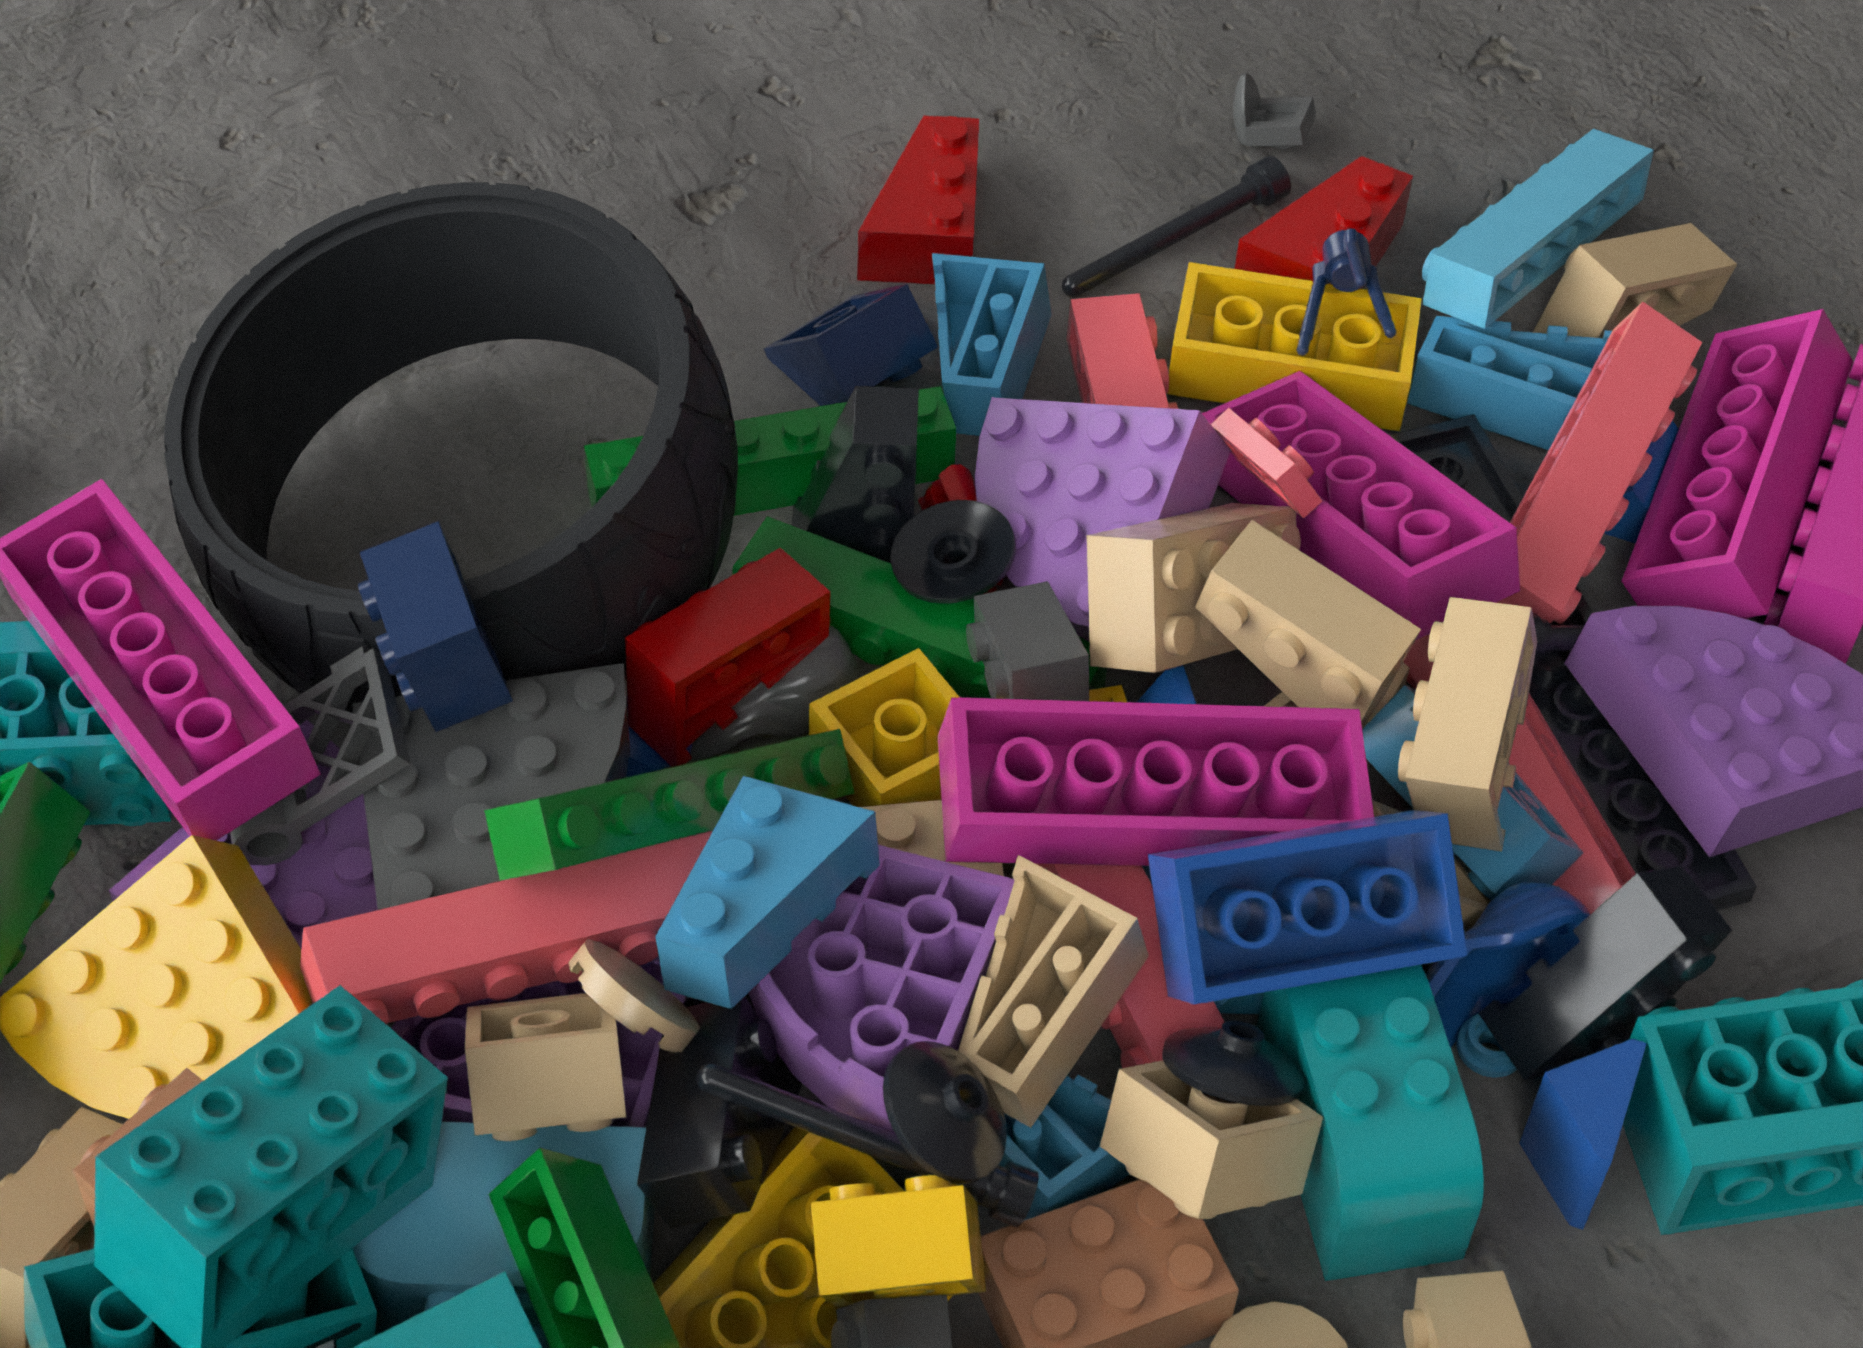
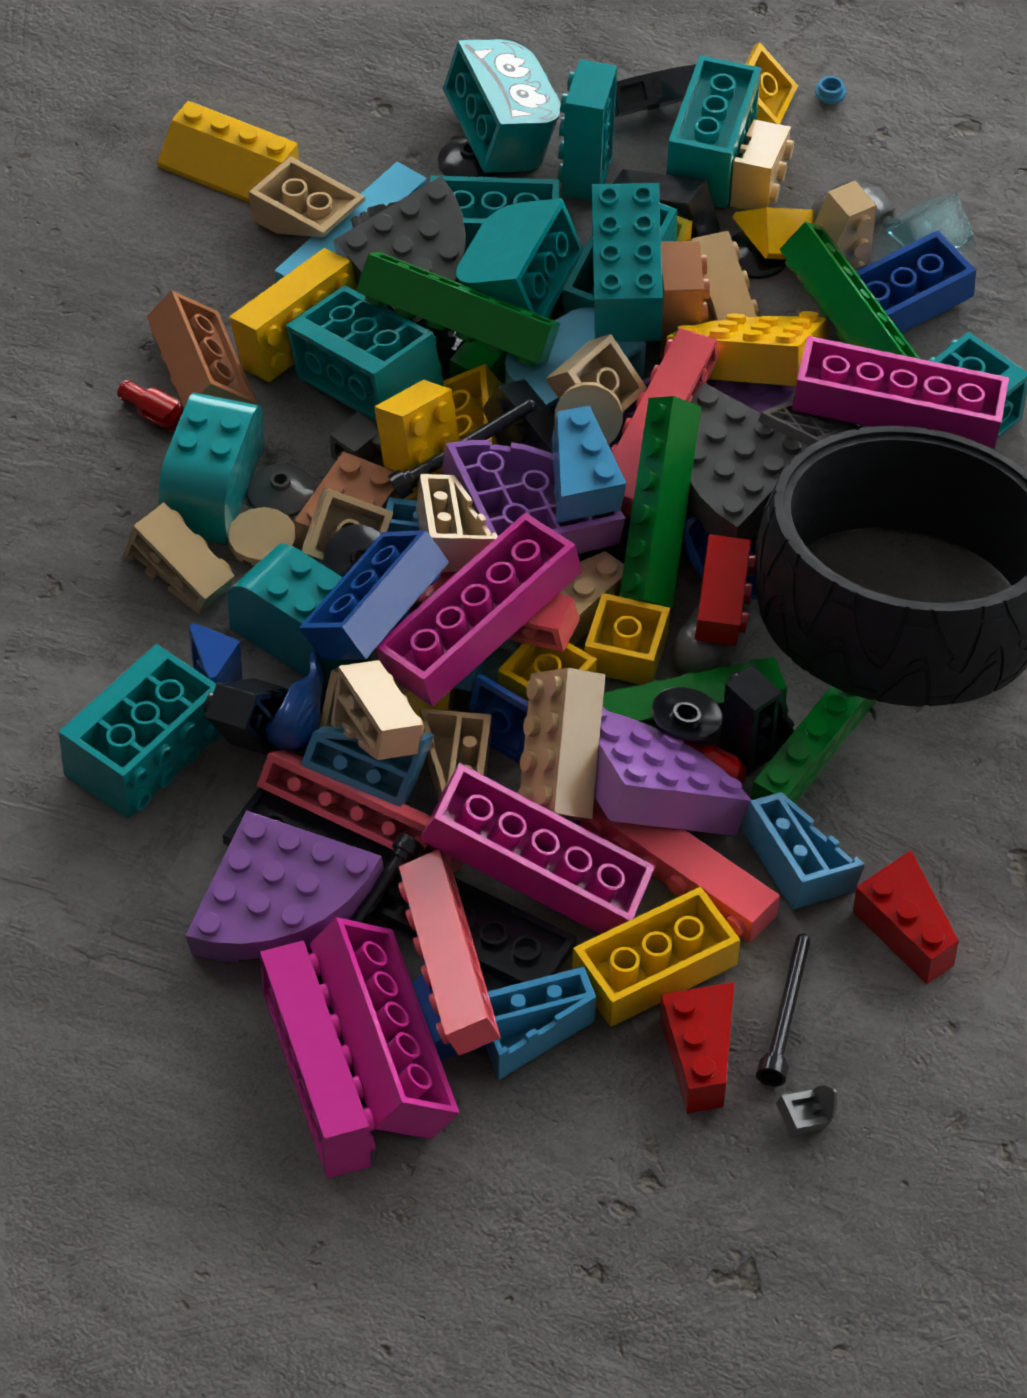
camera: 140 degrees right, 0 degrees up
(431, 628) = (791, 431): dark blue brick -> none
(855, 345) = (860, 814): dark blue slope -> none
(944, 1112) = (448, 445): black dish -> none
(1028, 645) = (621, 676): dark grey brick -> none
(1257, 451) = (582, 808): coral plate -> none
(1305, 624) = (481, 718): tan wedge -> none
(1347, 268) = (658, 974): dark blue plant -> none
(1535, 228) = (599, 1106): medium azure brick -> none
(1666, 268) = (523, 1124): tan wedge -> none

